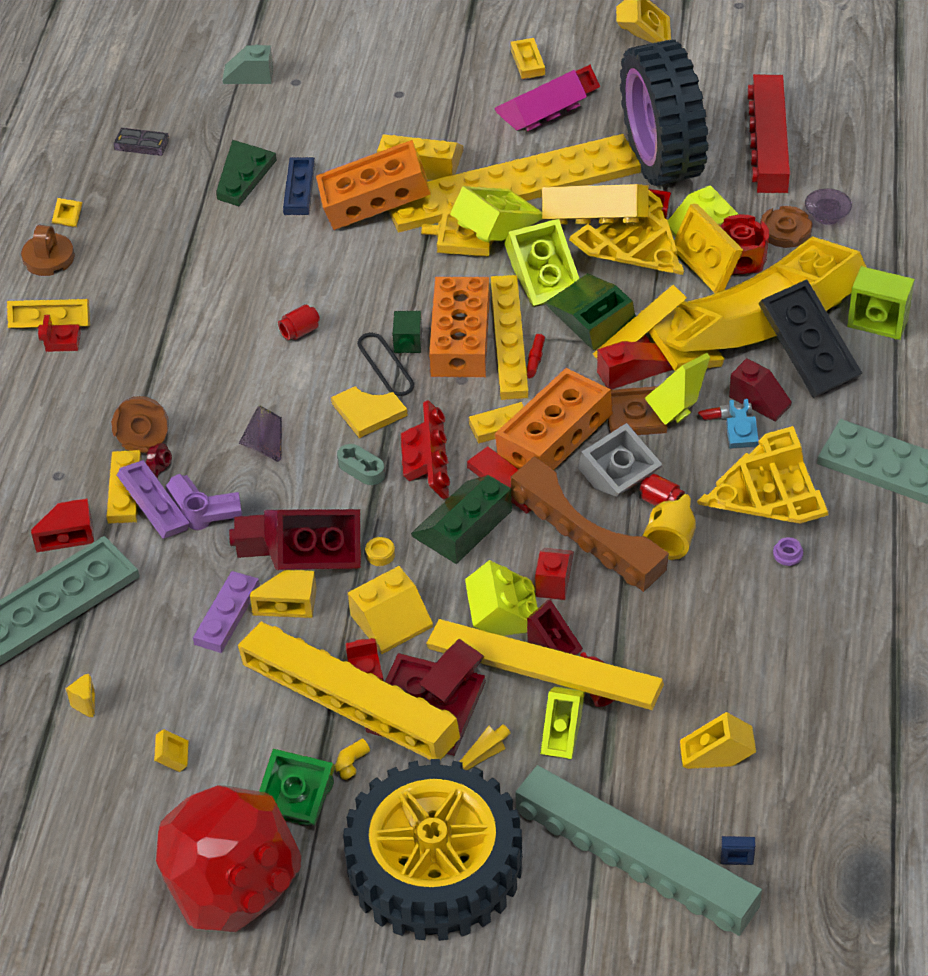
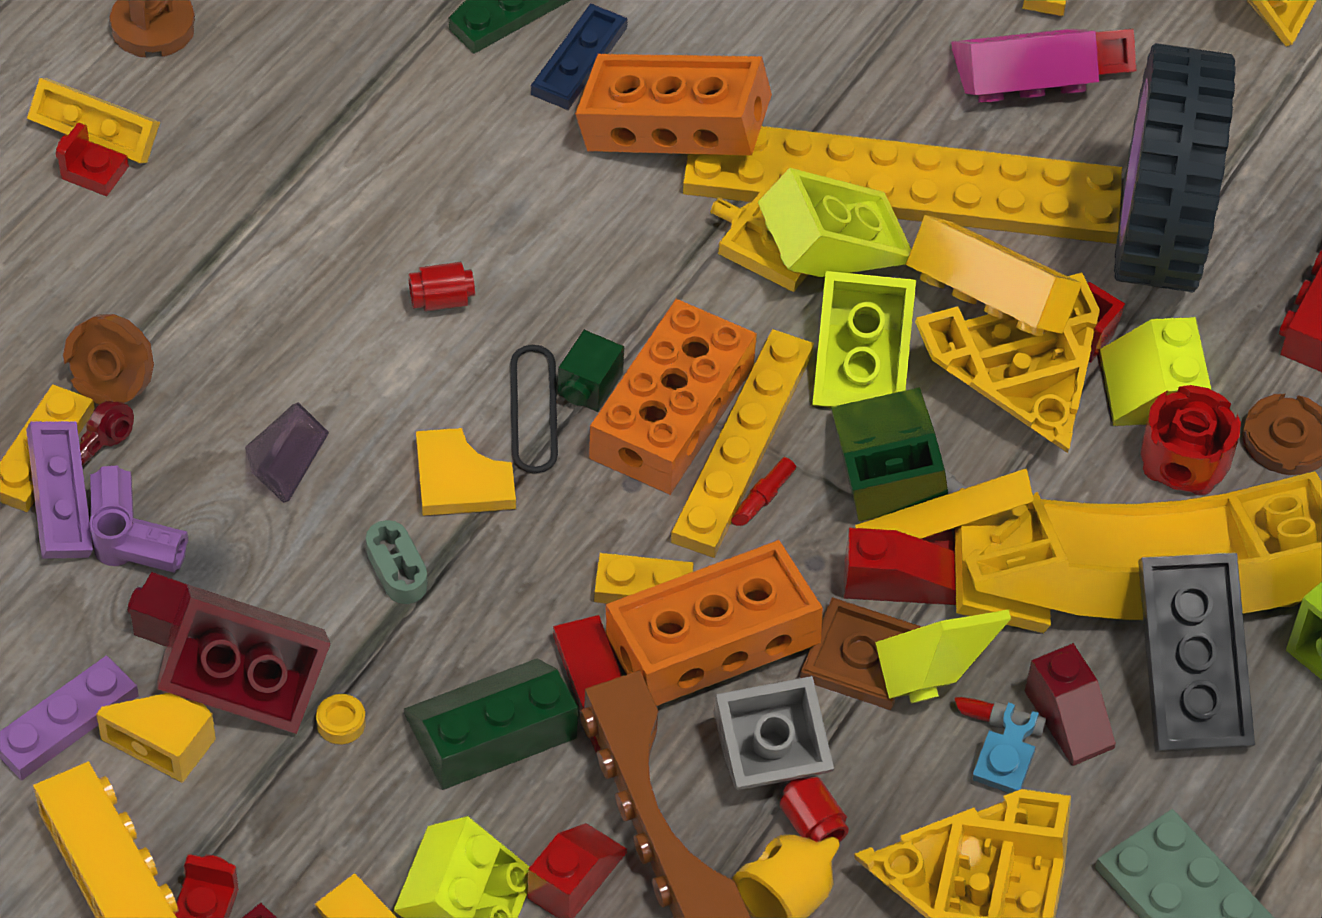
camera: 20 degrees right, 5 degrees up
(389, 609) = (291, 825): yellow slope -> none
(426, 452) = (504, 583): red bracket -> none
(437, 156) = (802, 88): yellow slope -> none
(707, 248) = (1126, 424): yellow tile -> none

